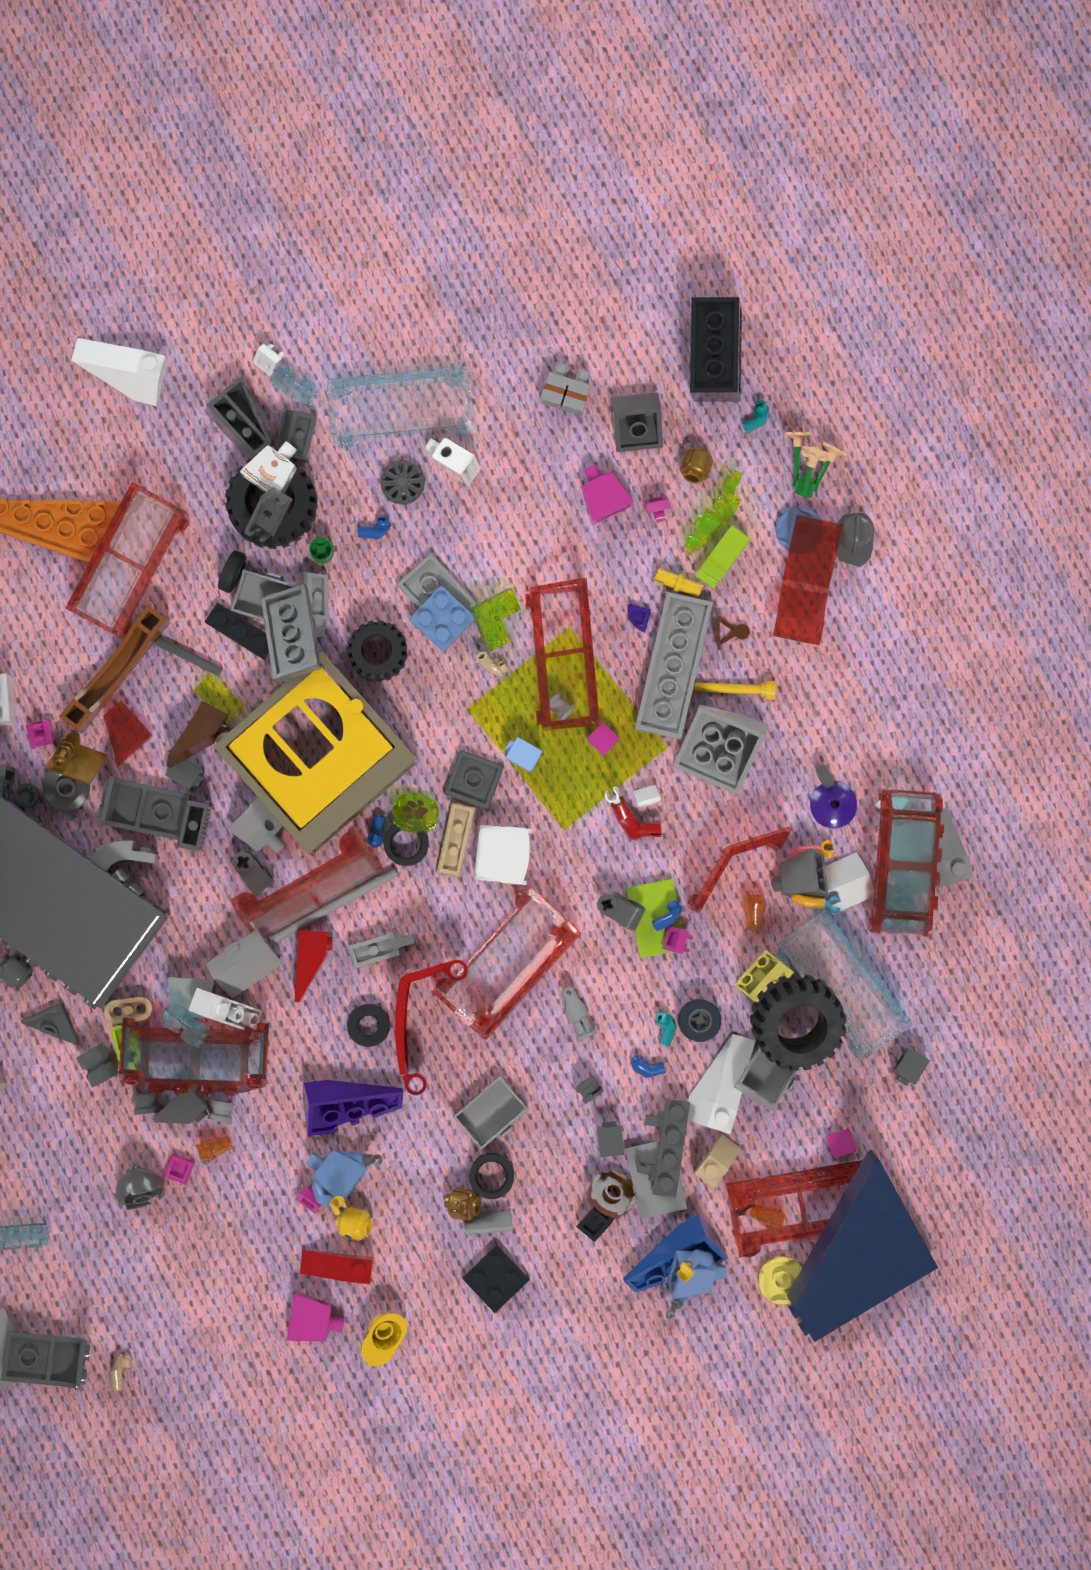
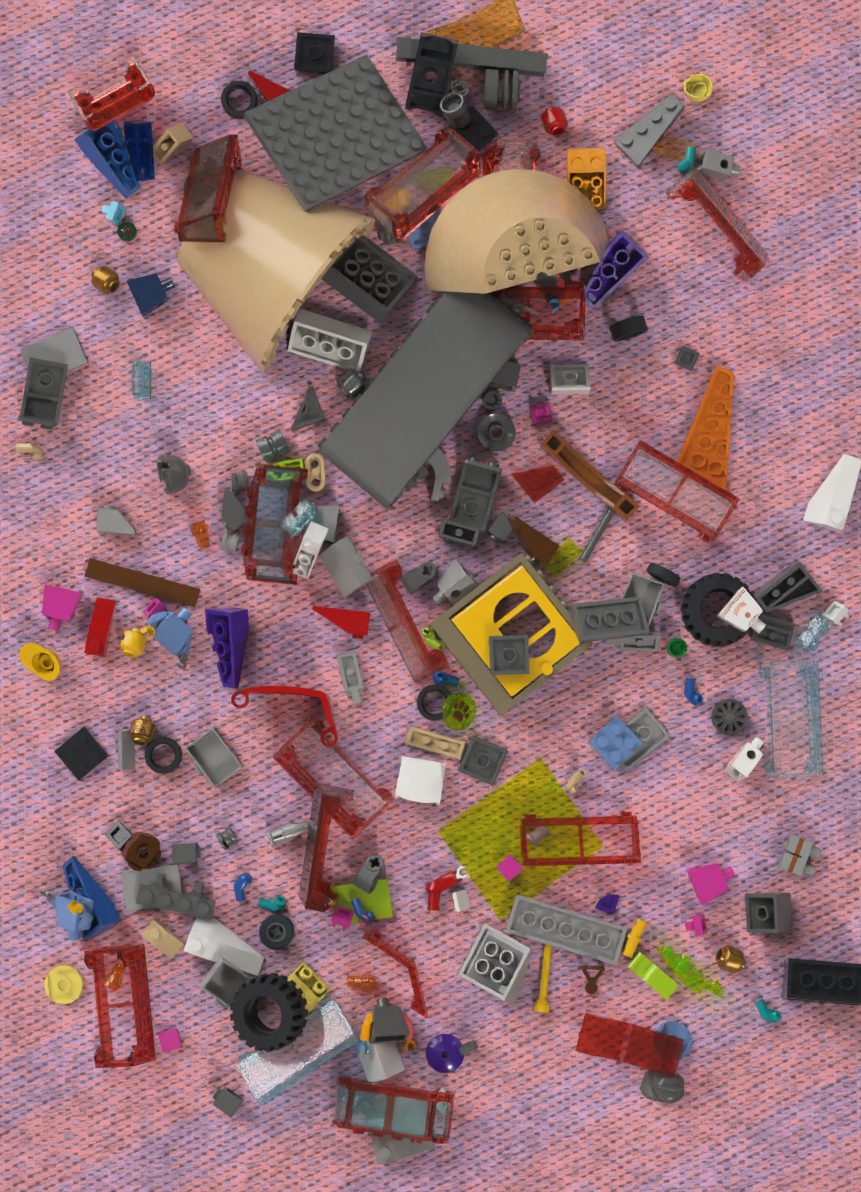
camera: 95 degrees right, 0 degrees up
(76, 760) = (517, 441): pearl gold hinge -> none
(179, 1169) = (186, 506): dark pink tile -> none
(204, 1259) = (113, 522): none -> light grey slope
(238, 630) = (615, 577): black plate -> none
(268, 514) = (706, 608): dark grey hinge -> none
(278, 1217) = (142, 582): none -> reddish brown tile
(327, 853) = (430, 638): none -> lime arm
(334, 905) = (388, 641): light grey piece -> none
(340, 753) = (509, 655): none -> dark grey plate
(365, 634) = (606, 679): black tyre -> none
(381, 1032) = (290, 675): black tyre -> none
(489, 617) = (615, 781): clear neon green plate -> none
(522, 754) = (501, 801): light blue brick -> none
(647, 977) = (313, 891): none -> clear red windscreen
(805, 485) = (709, 1049): plant -> none
(861, 1255) = (78, 1050): dark blue slope -> none

